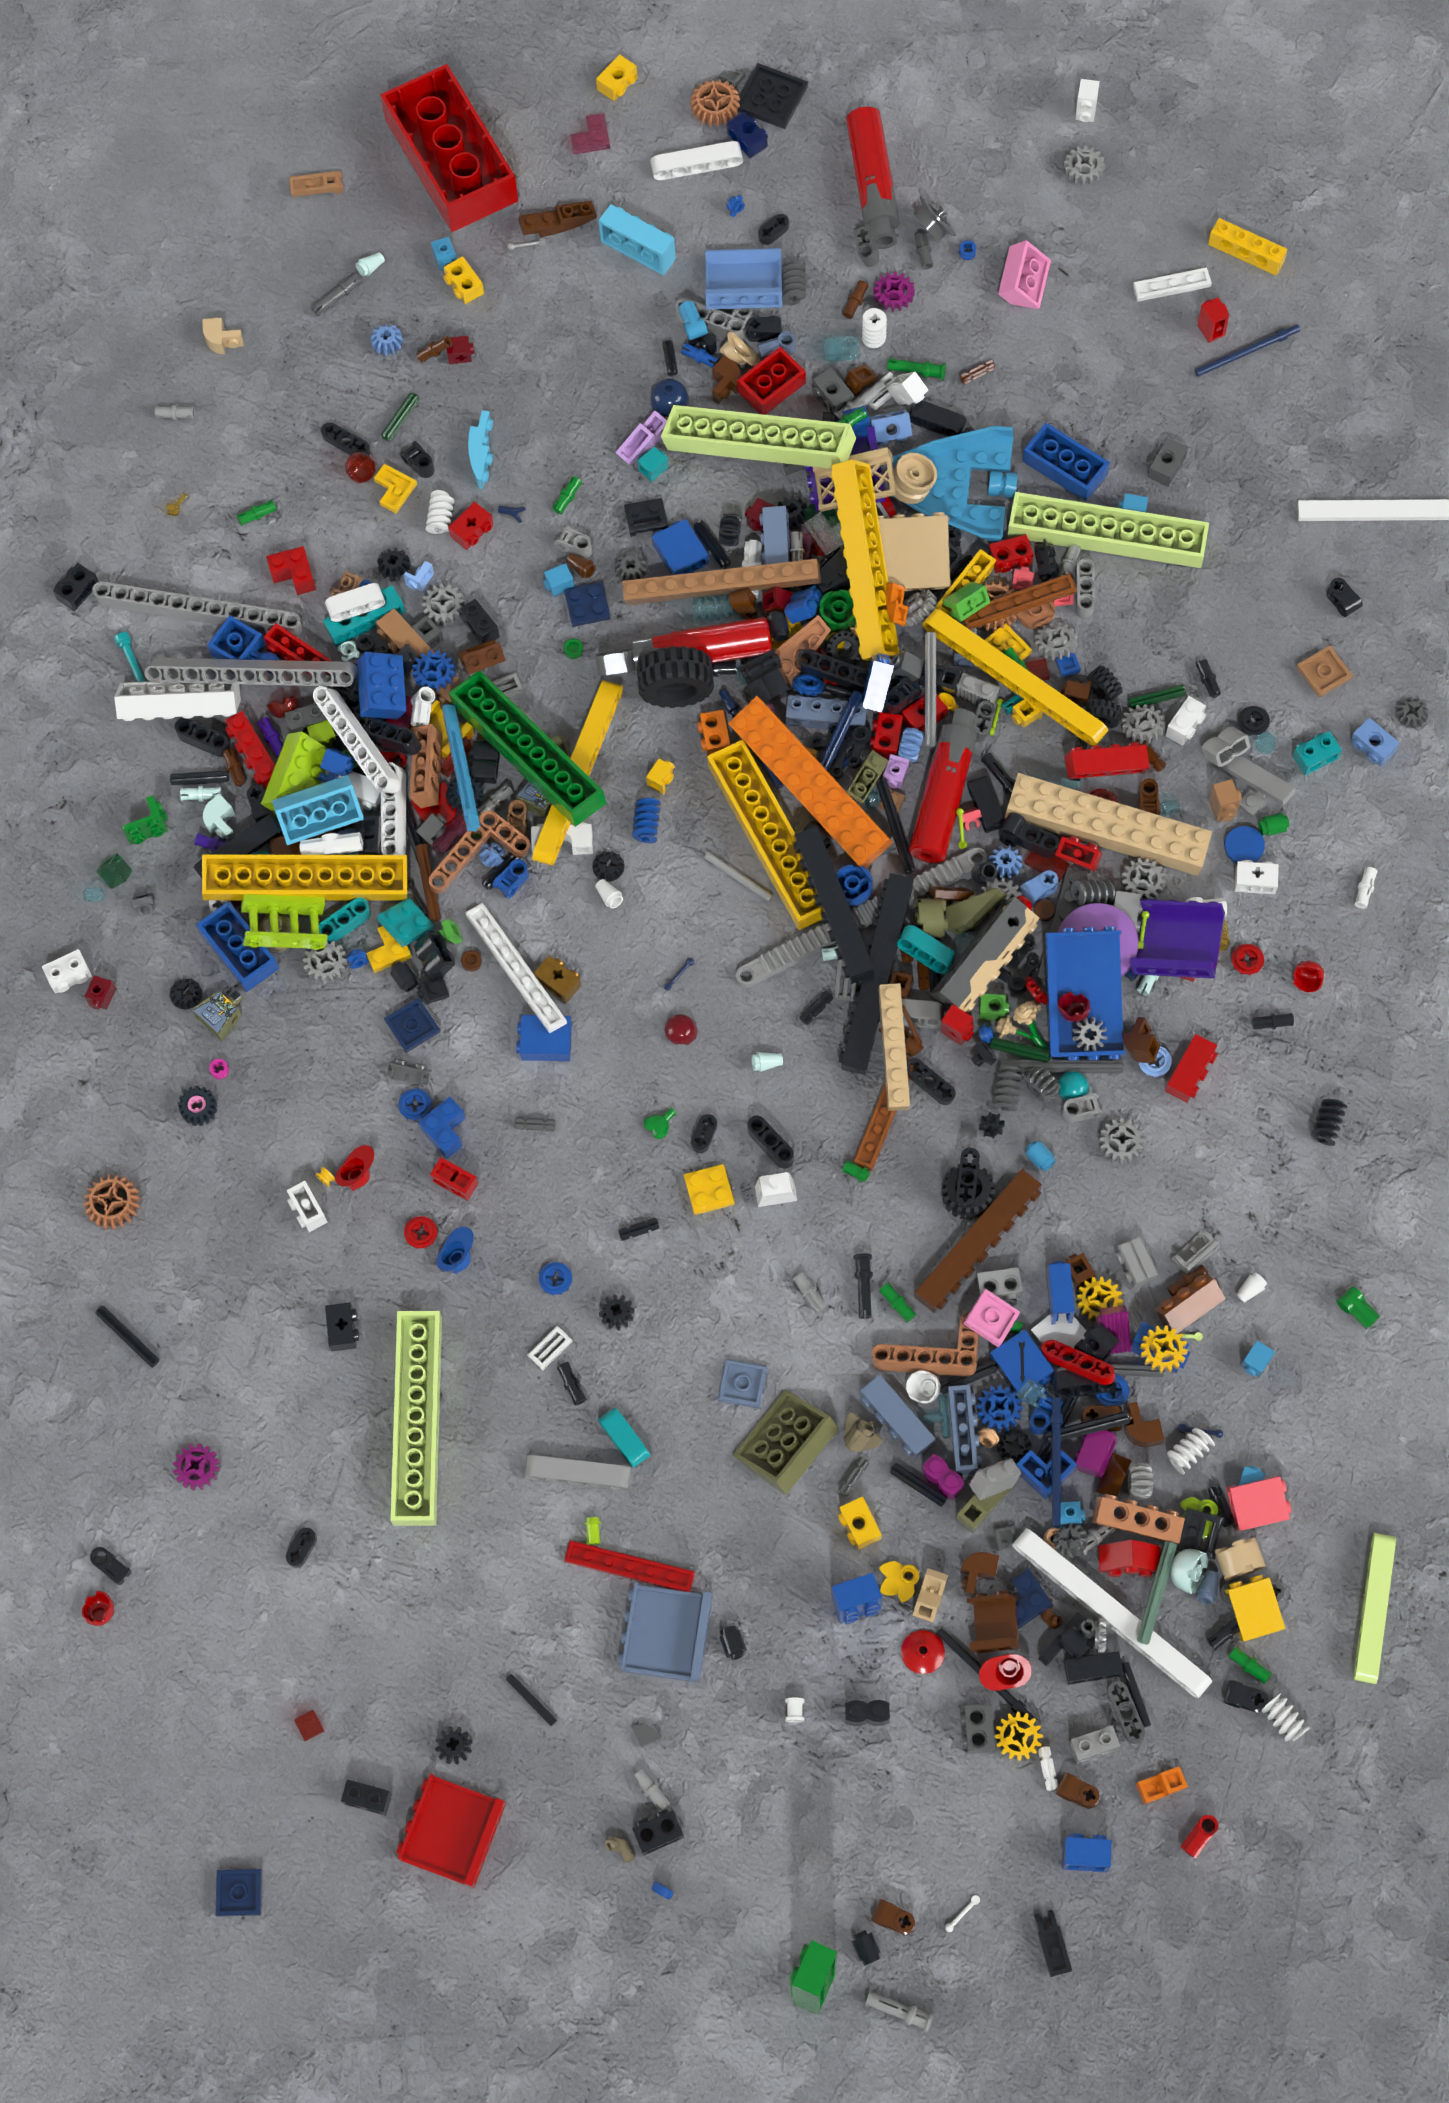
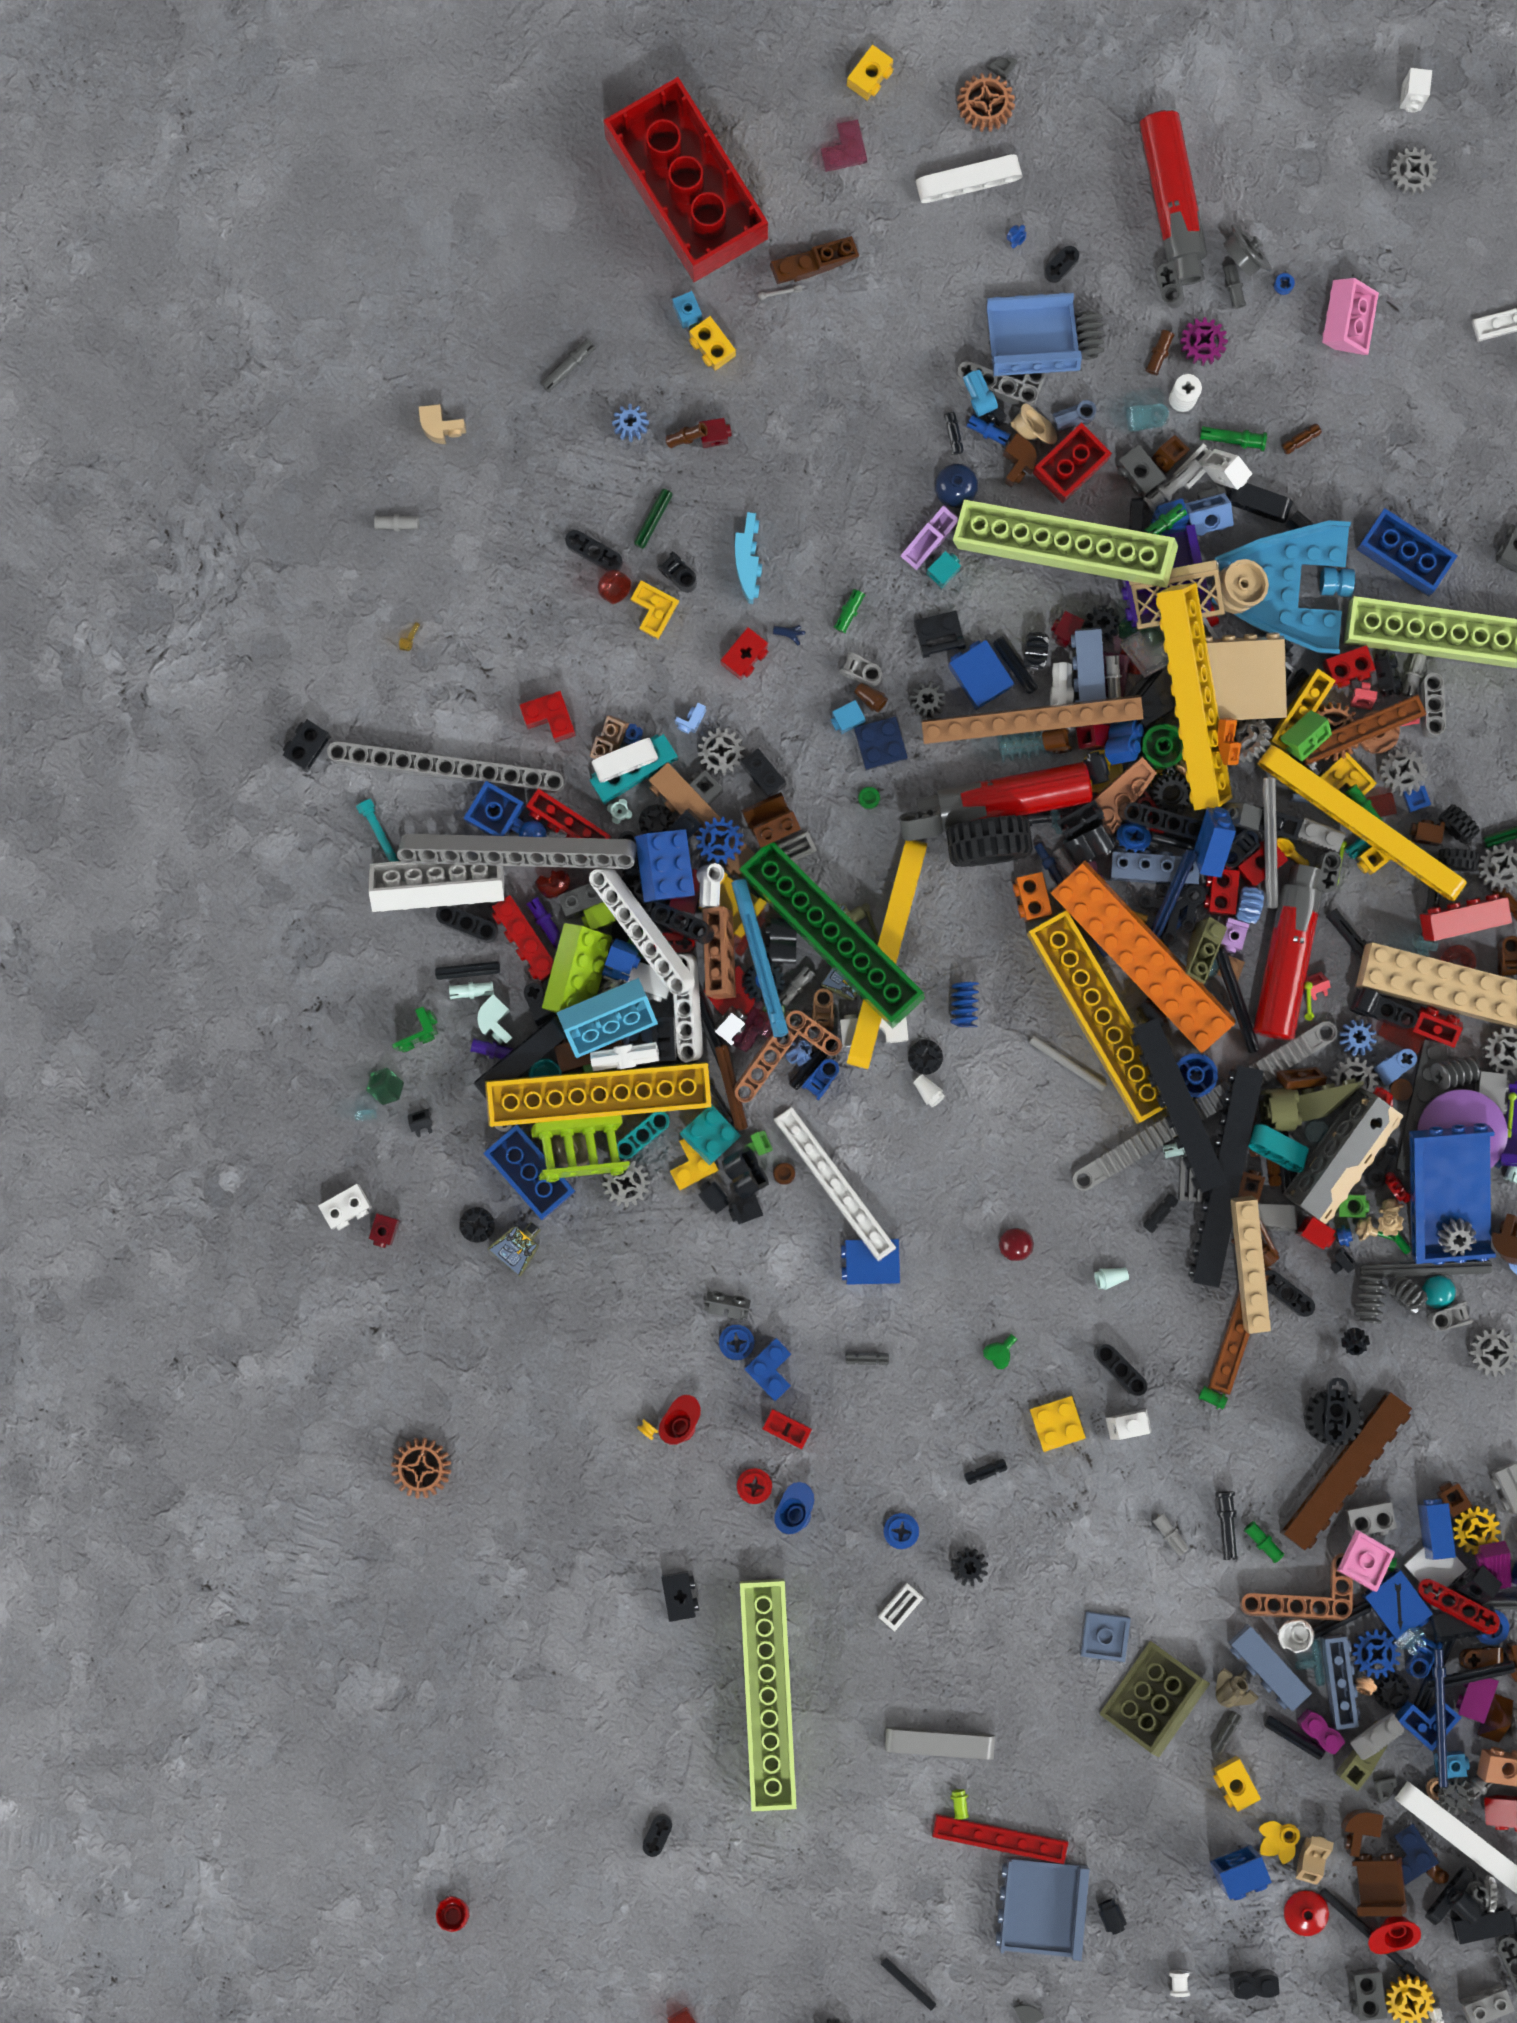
camera: 10 degrees left, 15 degrees up
(111, 1566) = (460, 1865): black piece -> none
(127, 1336) = (452, 1615): black axle -> none
(187, 1473) = (533, 1747): magenta gear -> none
(198, 1115) = (500, 1343): black bush -> none
(216, 1063) = (518, 1304): dark pink bush -> none
(234, 767) = (505, 958): reddish brown axle -> none
(256, 512) = (501, 645): green pin -> none
(307, 1207) = (632, 1467): white brick -> none
(316, 184) = (531, 223): medium nougat plate -> none
(357, 958) = (661, 1178): blue plate -> none
(362, 639) = (643, 799): black bush -> none
(369, 264) = (601, 326): light aqua cone -> none
(395, 557) = (669, 706): black gear -> none
(412, 1025) = (726, 1252): dark blue plate -> none
(439, 512) = (708, 639): white piece -> none
(561, 988) = (885, 1204): pearl gold brick -> none
(571, 1383) = (926, 1645): black pin -> none
(624, 1437) = (985, 1702): teal beam -> none
(637, 239) = (909, 287): medium azure brick -> none
(660, 775) = (977, 949): yellow brick -> none
(689, 962) = (1020, 1165): dark blue hinge -> none
(699, 1132) = (1043, 1359): black beam -> none
(748, 134) = (1030, 154): clear blue brick -> none
(765, 328) = (1063, 394): black piece -> none
(772, 95) = (1050, 90): black plate -> none
(984, 872) = (1336, 1053): black brick -> none
(985, 800) = (1334, 968): black beam -> none
(1020, 1049) = (1382, 1253): dark green axle -> none
(1040, 1155) = (1408, 1372): dark azure brick -> none
(1073, 1007) = (1442, 1211): dark red hair -> none
(1134, 503) = (1484, 604): dark azure brick -> none

